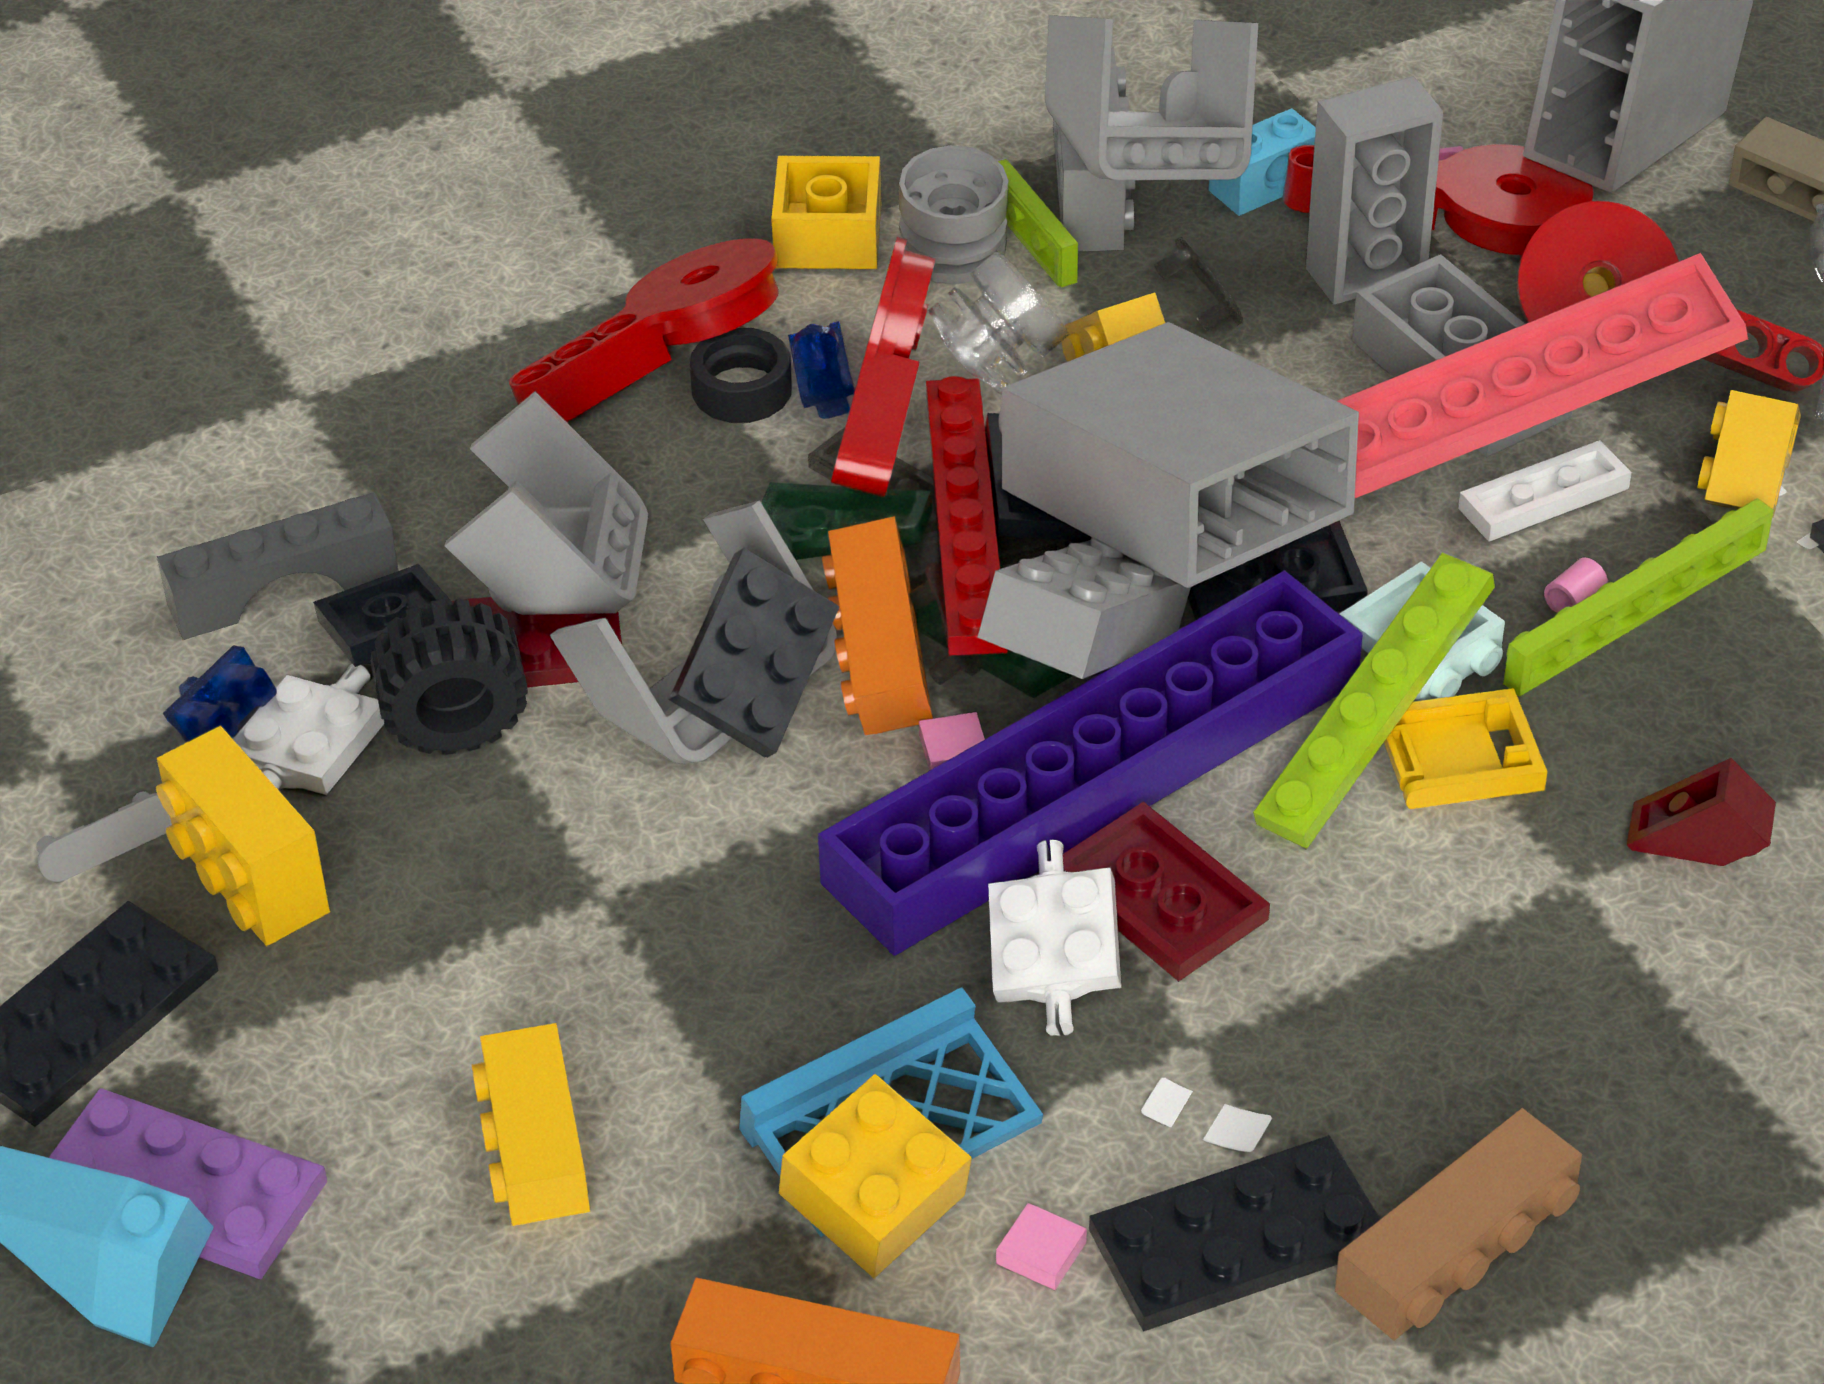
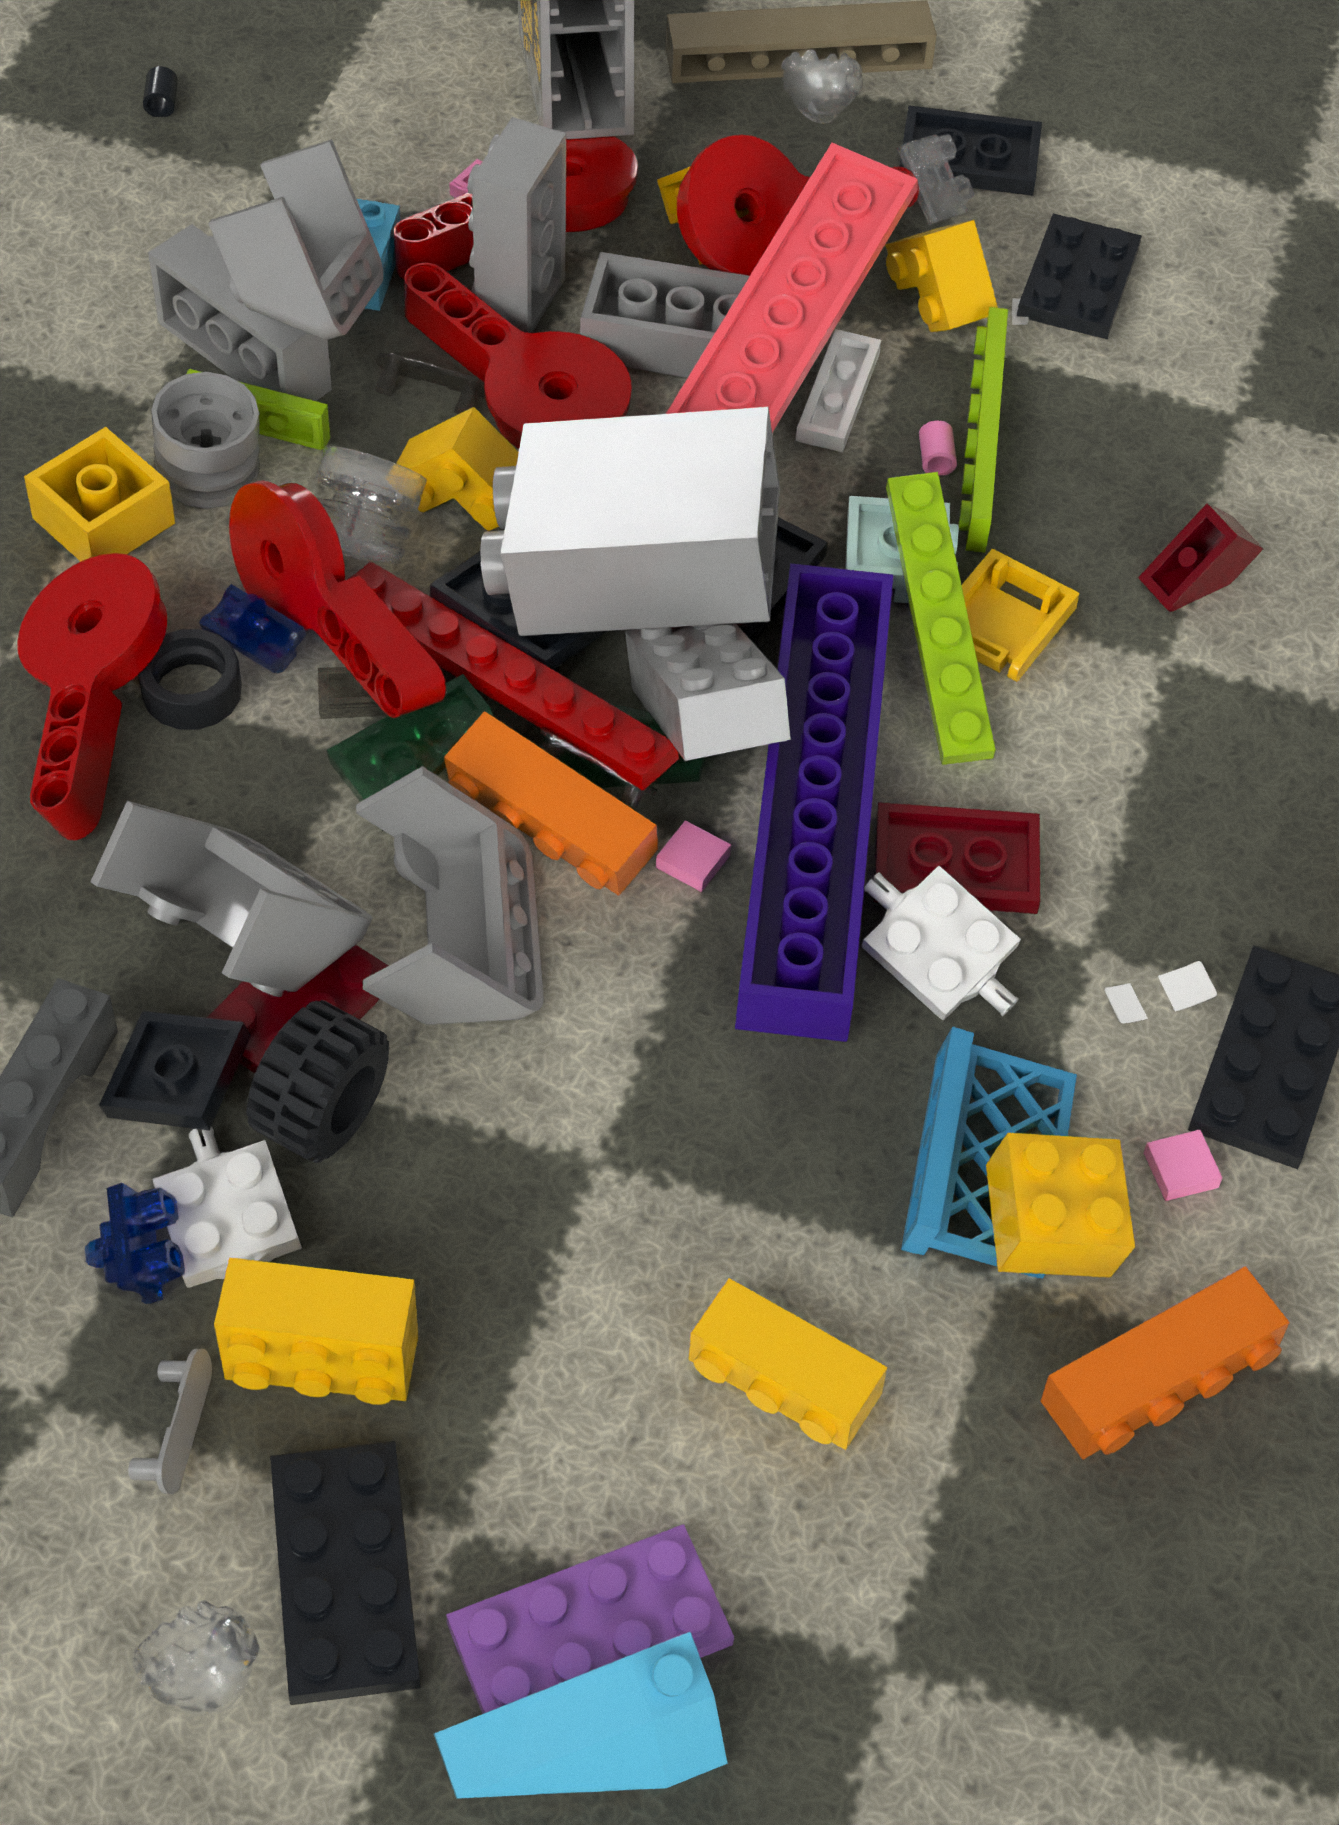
camera: 50 degrees left, 10 degrees up
(754, 653) = (511, 890): black plate -> none
(1283, 309) = (524, 373): none -> red beam

